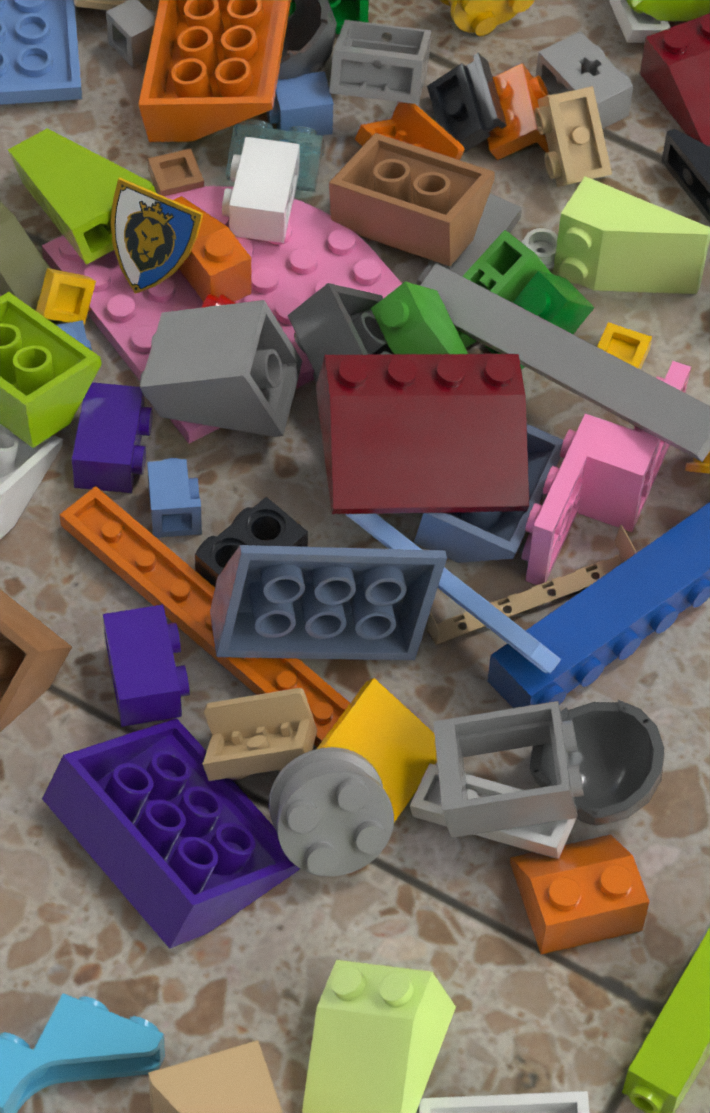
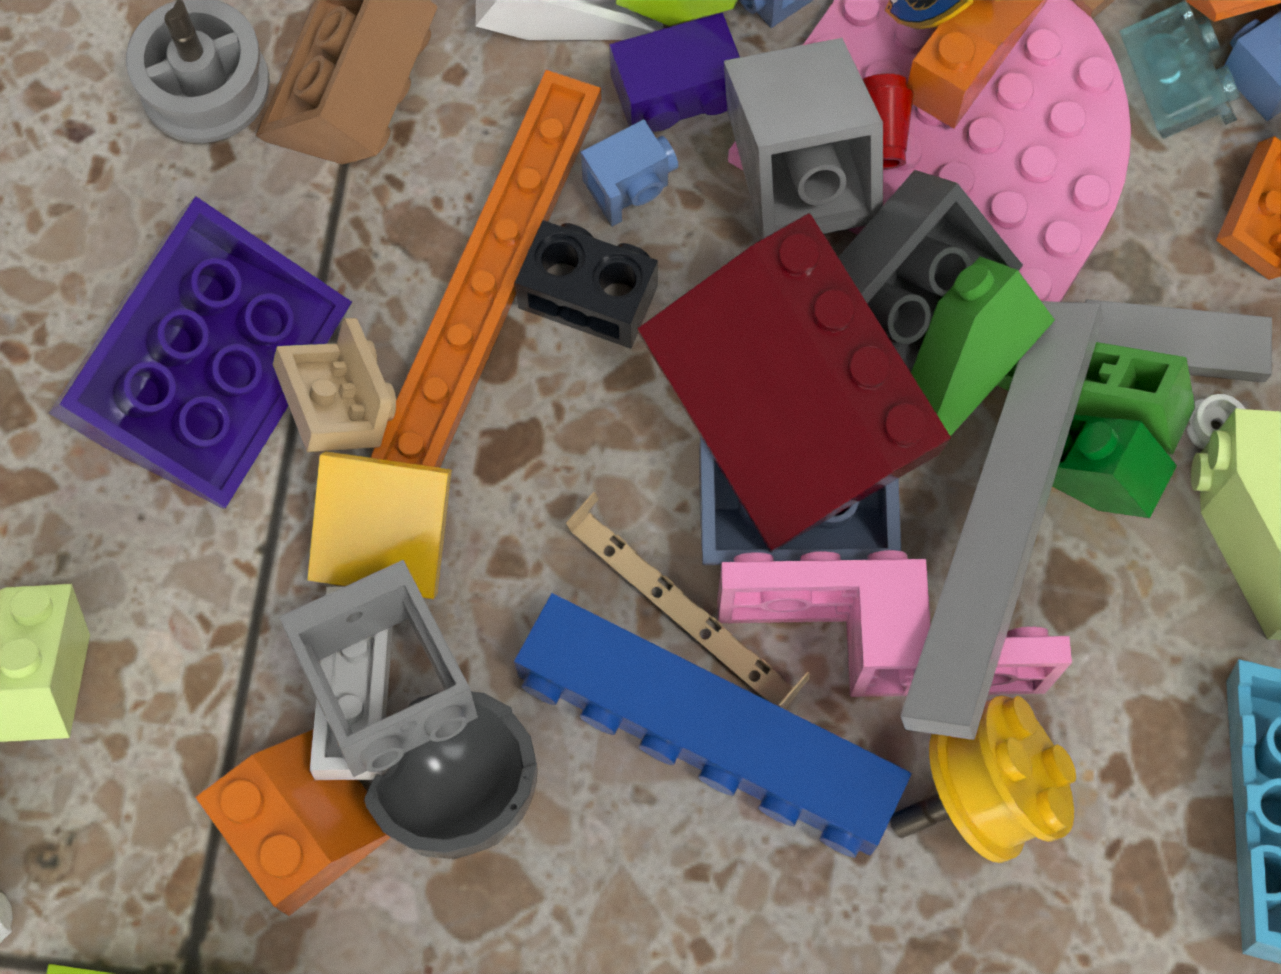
camera: 70 degrees right, 15 degrees up
(144, 666) = (384, 234): dark purple brick -> none
(262, 189) = (1101, 70): white brick -> none
(324, 602) = (514, 373): sand blue slope -> none
(331, 811) = (255, 500): light grey wheel -> none
(411, 198) = (1191, 236): medium nougat slope -> none
(466, 597) = (608, 532): light blue tile -> none
(625, 344) = (1107, 579): yellow plate -> none

